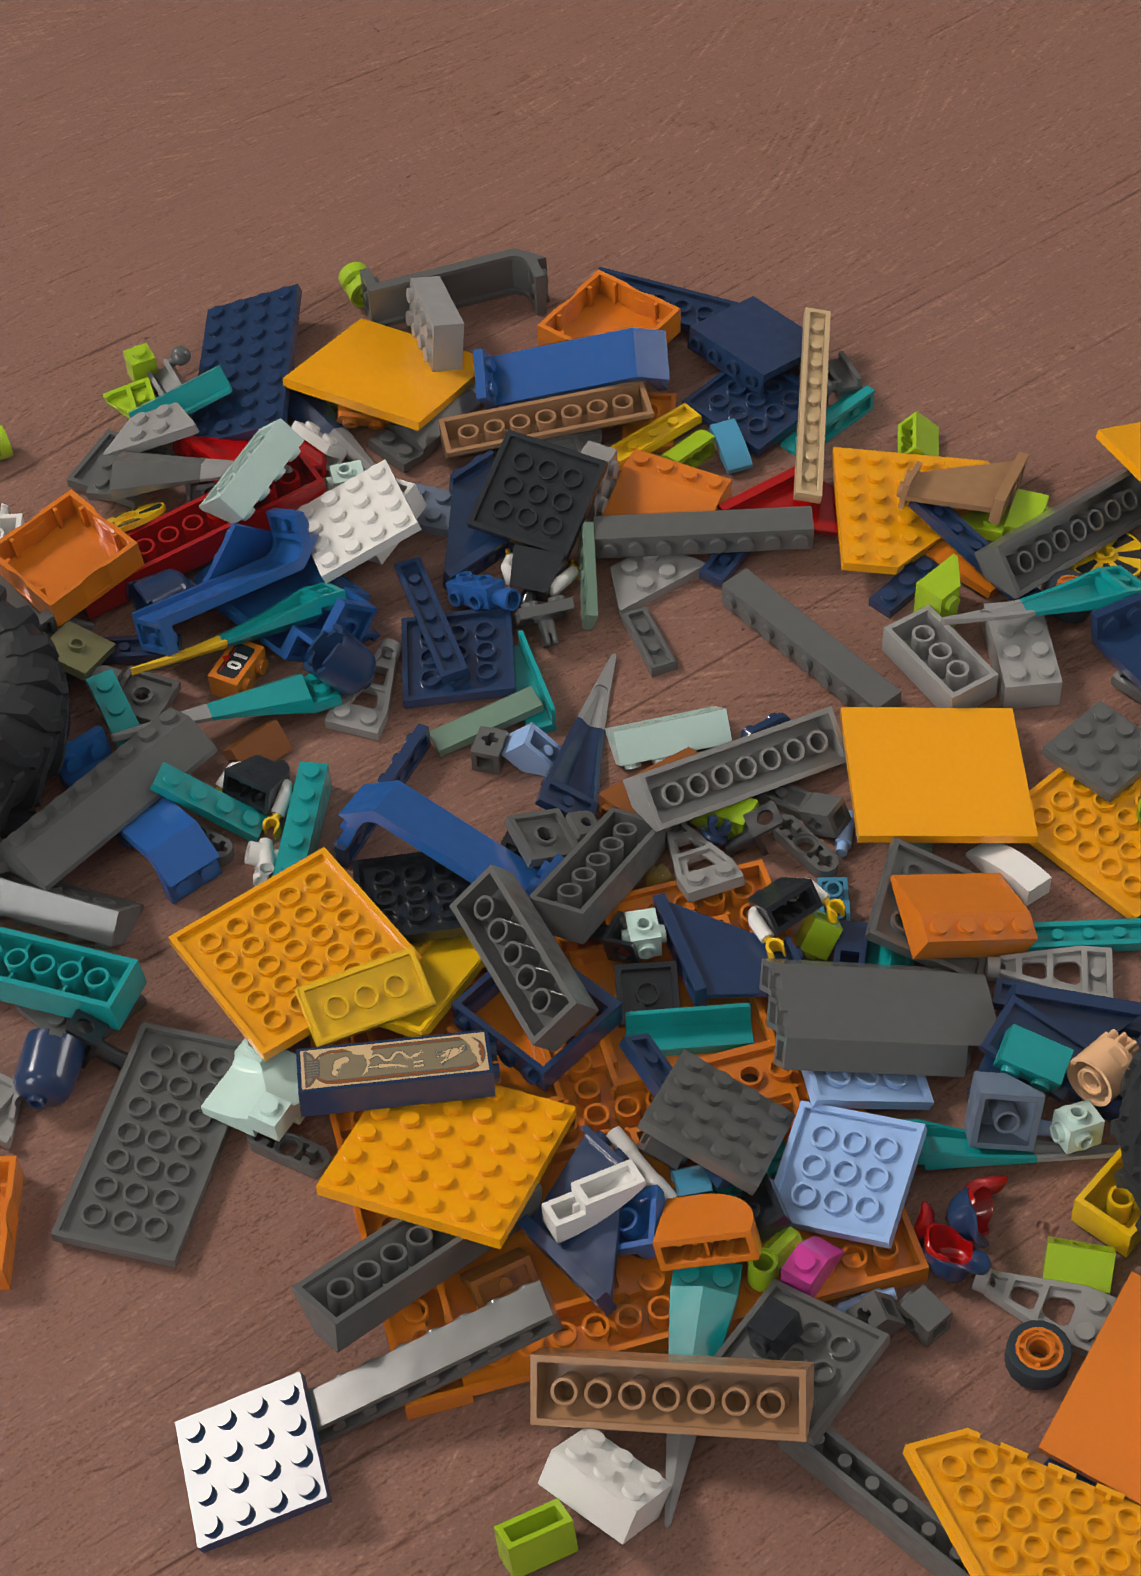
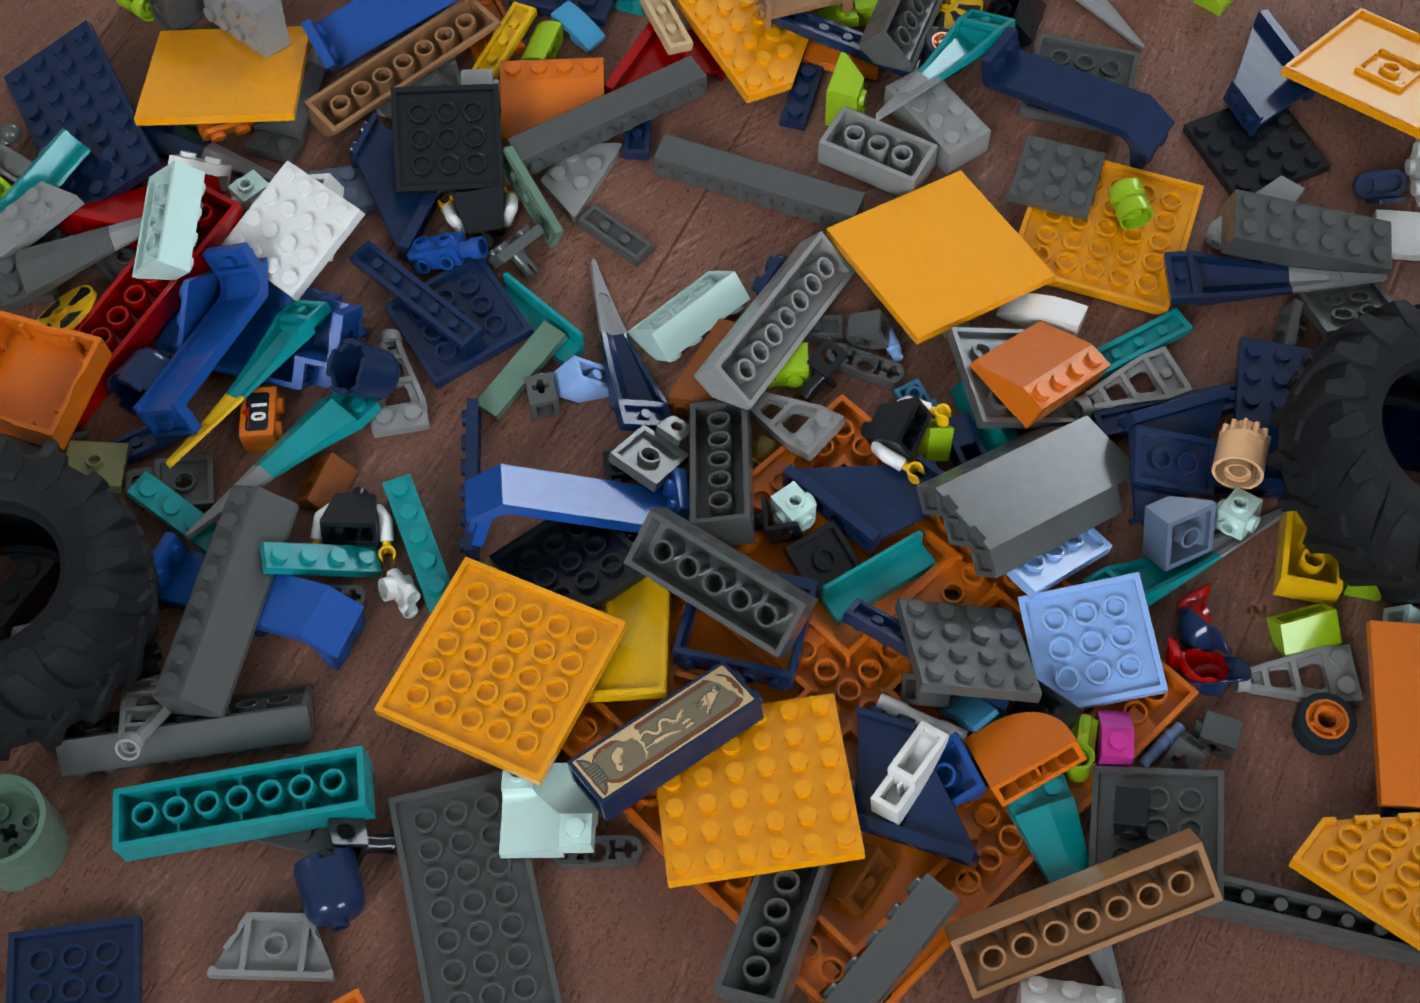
camera: 30 degrees left, 10 degrees up
(365, 997) = (599, 683): yellow tile -> none
(714, 834) = (789, 386): dark blue plate -> none
(1033, 1058) = (1182, 473): teal brick -> none

